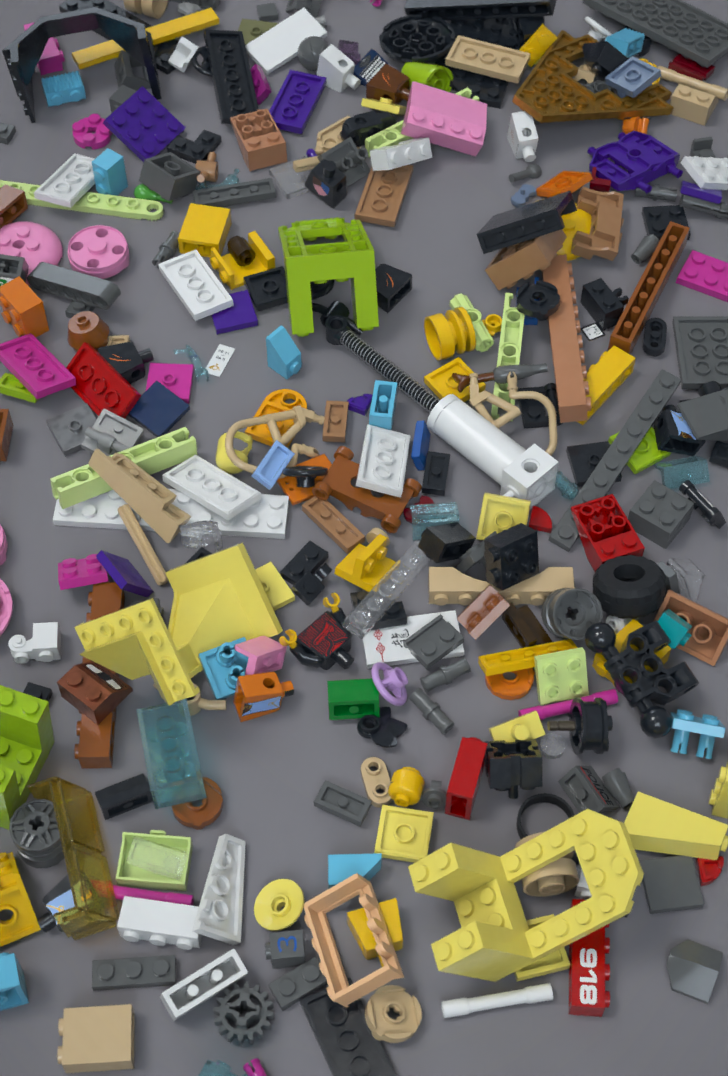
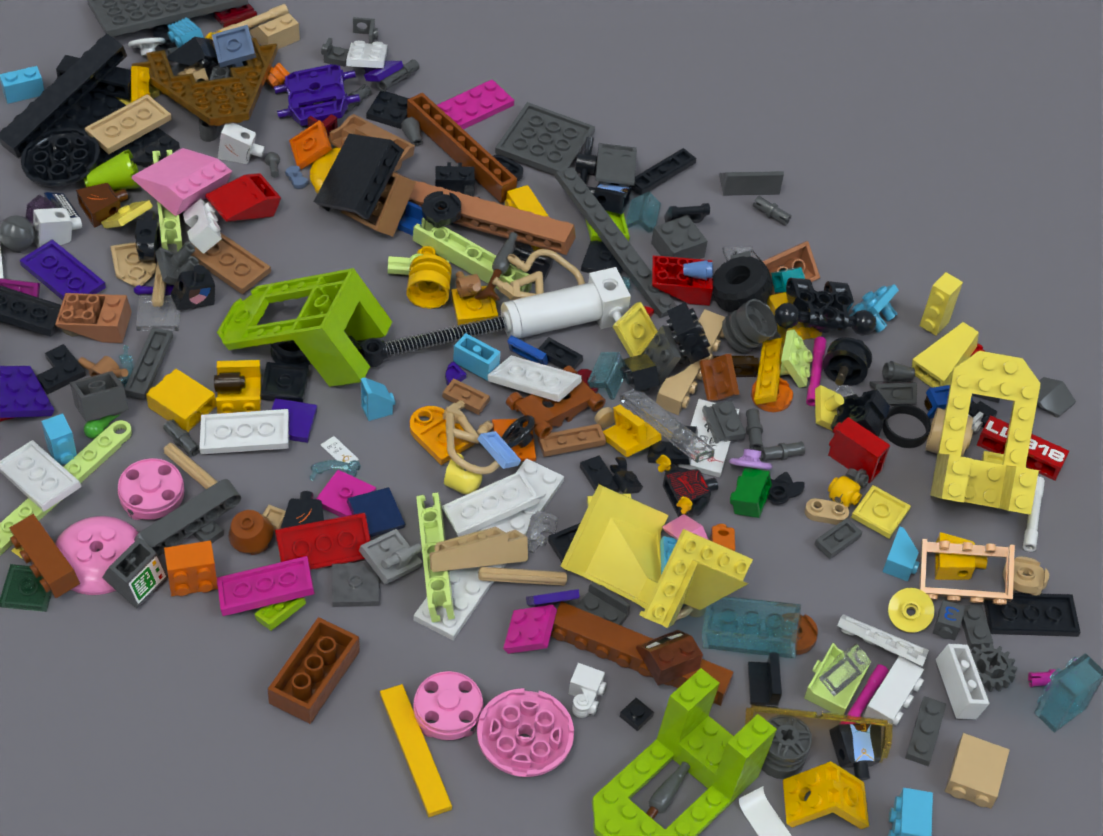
camera: 70 degrees left, 5 degrees down
(137, 274) = (189, 466): none -> tan axle
(455, 167) = (245, 198): none -> red slope
(465, 363) = (467, 285): none -> medium nougat piece
(610, 536) = (699, 269): none -> medium blue cone

